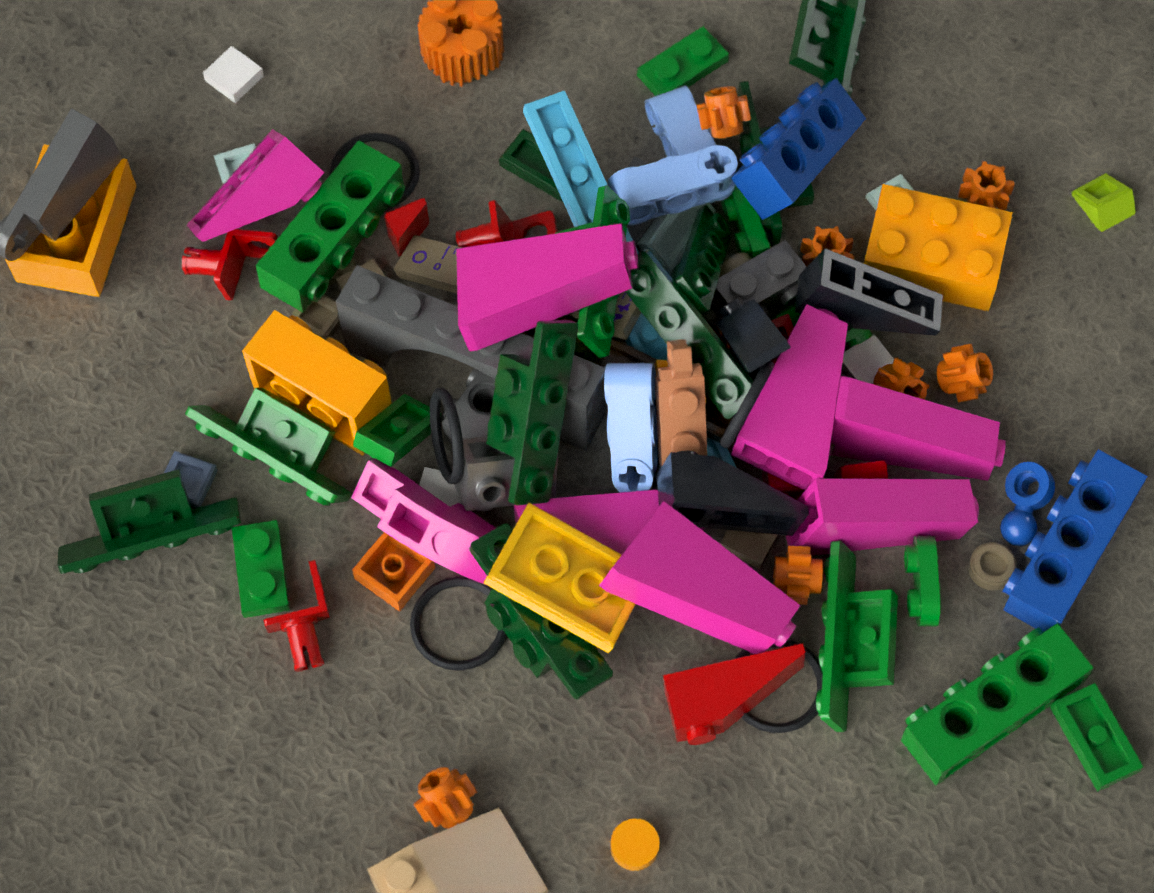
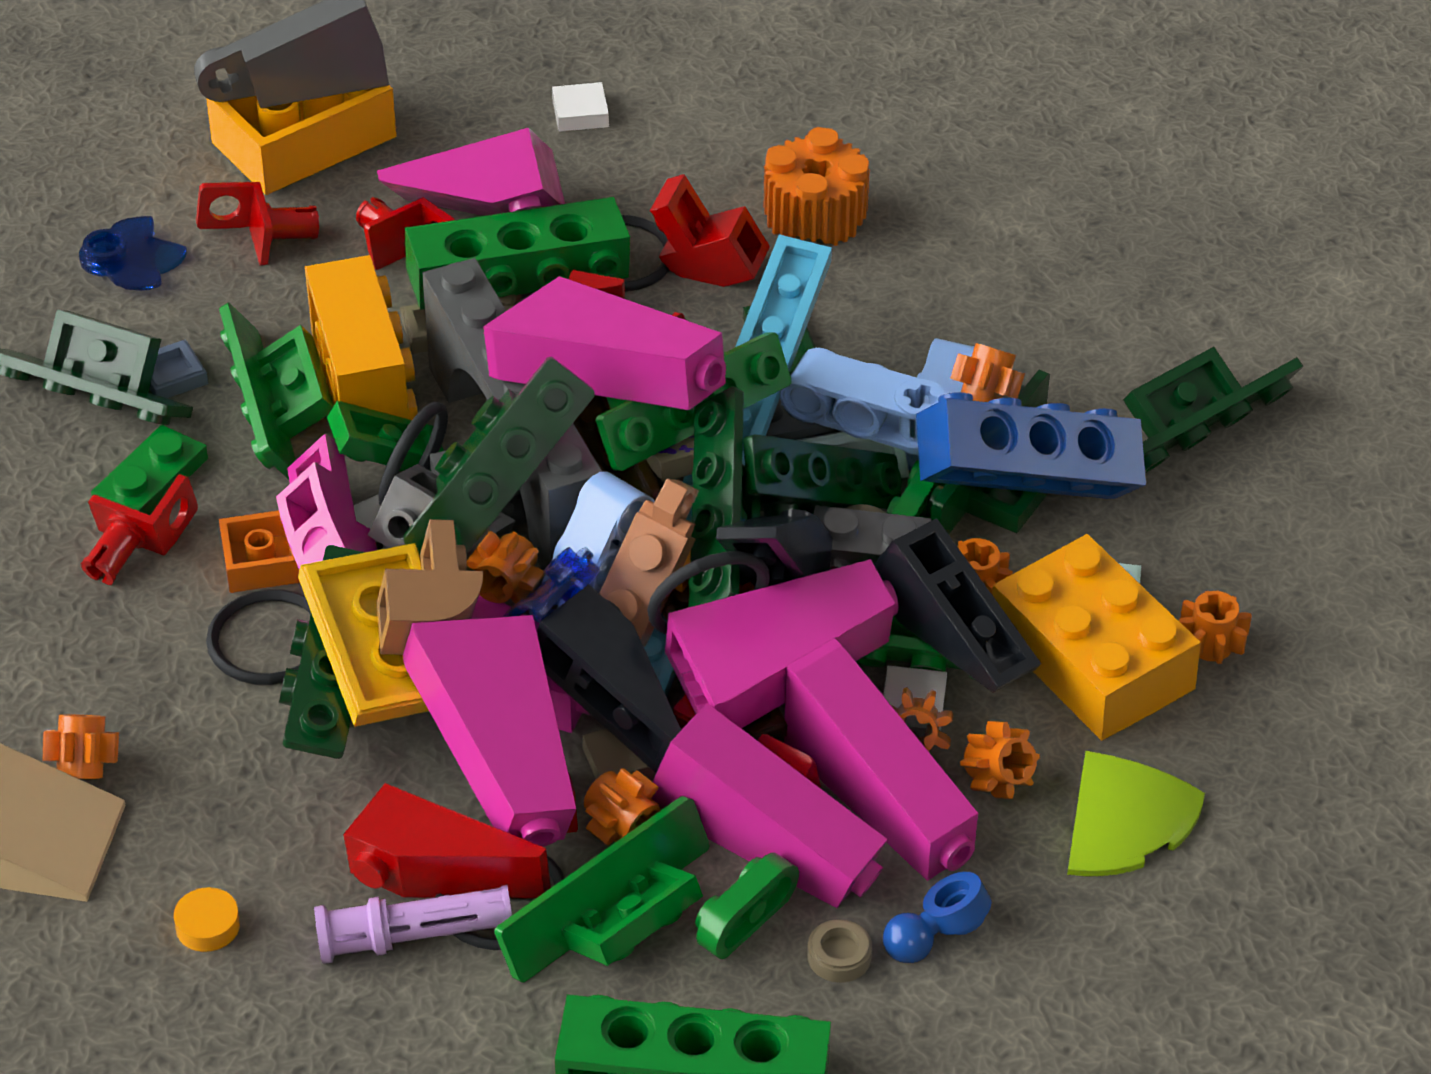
camera: 40 degrees right, 20 degrees down
(66, 407) = (130, 254): none -> clear blue plate
(130, 322) = (254, 212): none -> red bracket
(436, 128) = (704, 246): none -> red brick
(584, 472) = (506, 567): none -> orange gear
(595, 533) = (433, 594): none -> medium nougat brick
(645, 472) = (566, 577): none -> clear blue plate
(683, 63) = (1035, 343): green plate -> none
(744, 764) = (380, 925): none -> lavender pin
(1055, 353) = (1128, 814): none -> lime brick
(1105, 201) = (1344, 729): lime slope -> none
(1114, 489) = (946, 982): blue brick -> none

